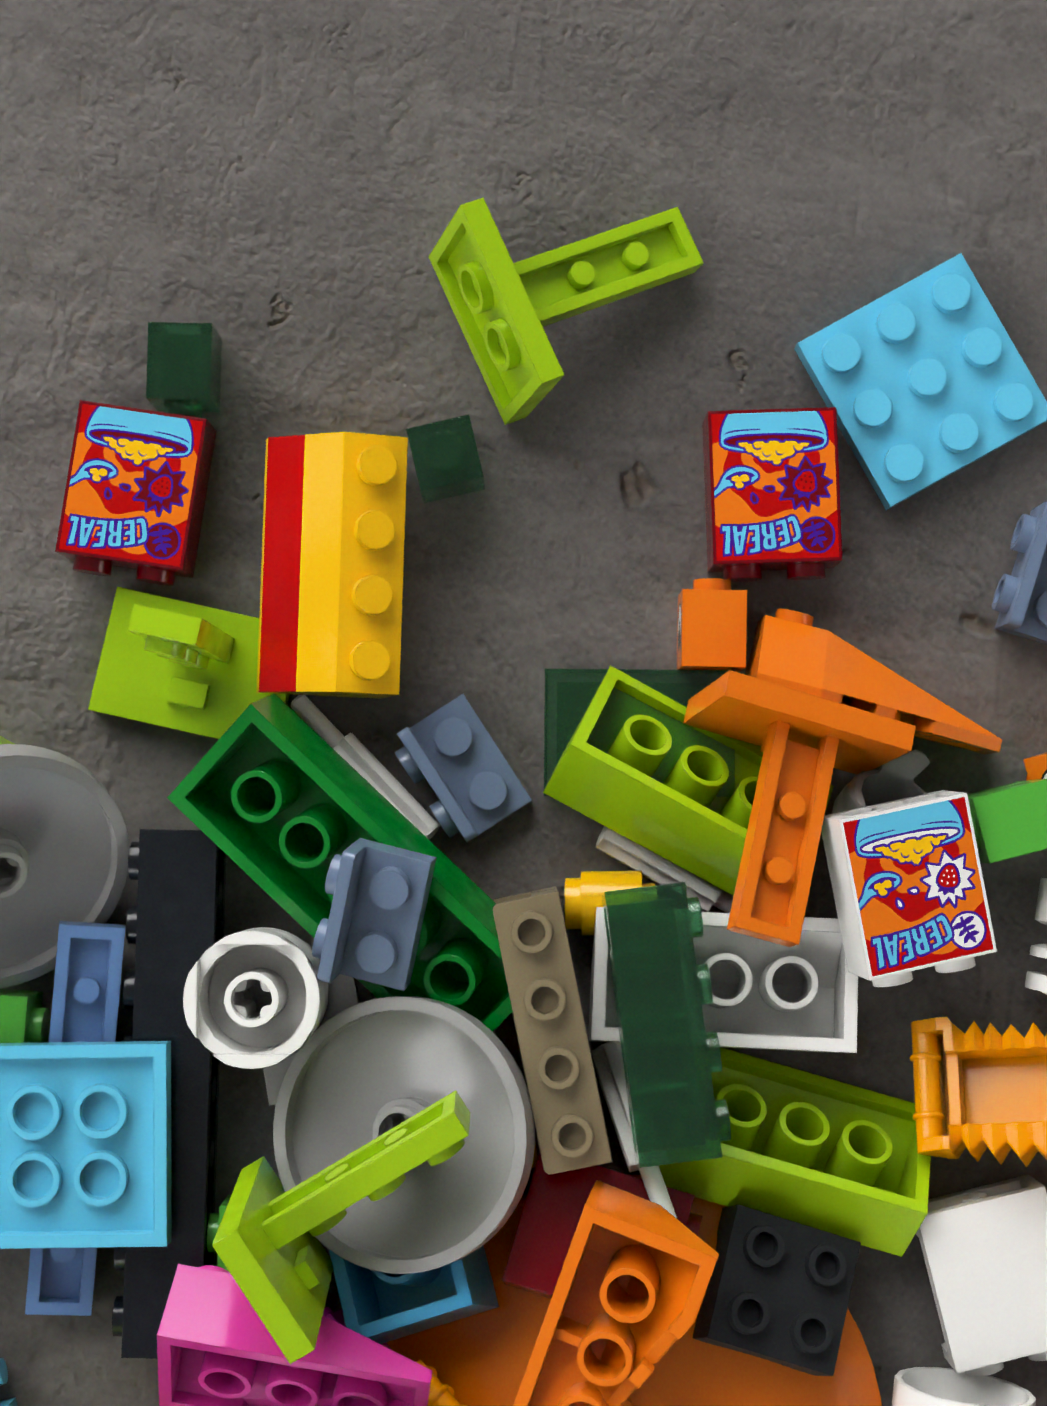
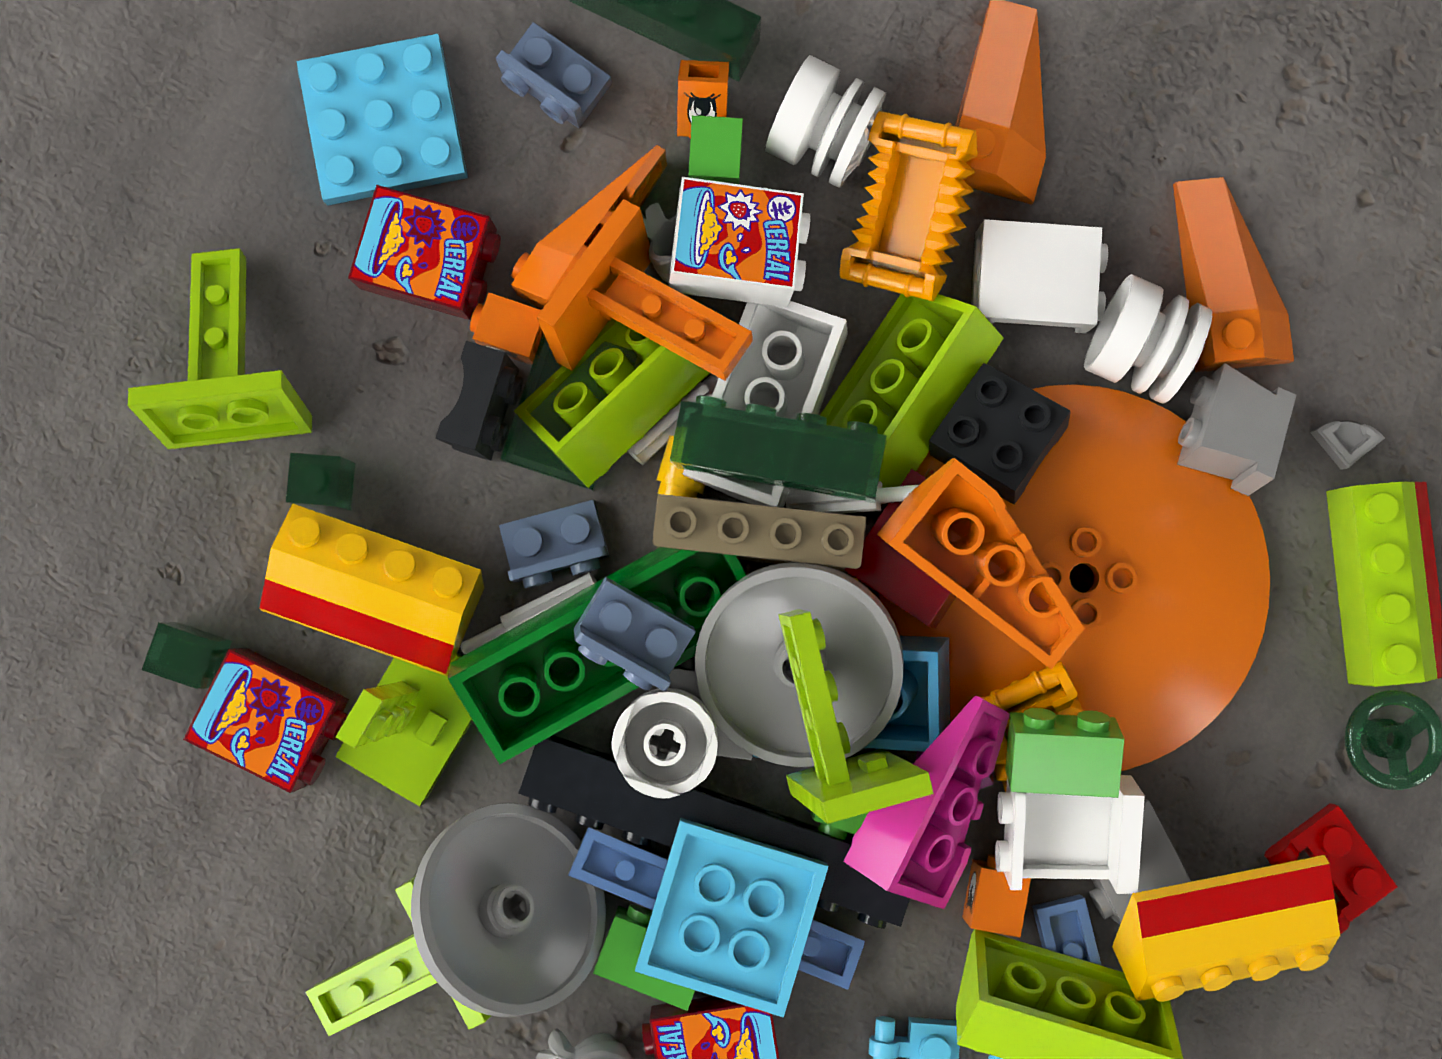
camera: 75 degrees left, 0 degrees up
(631, 629) = (488, 388): none -> black brick

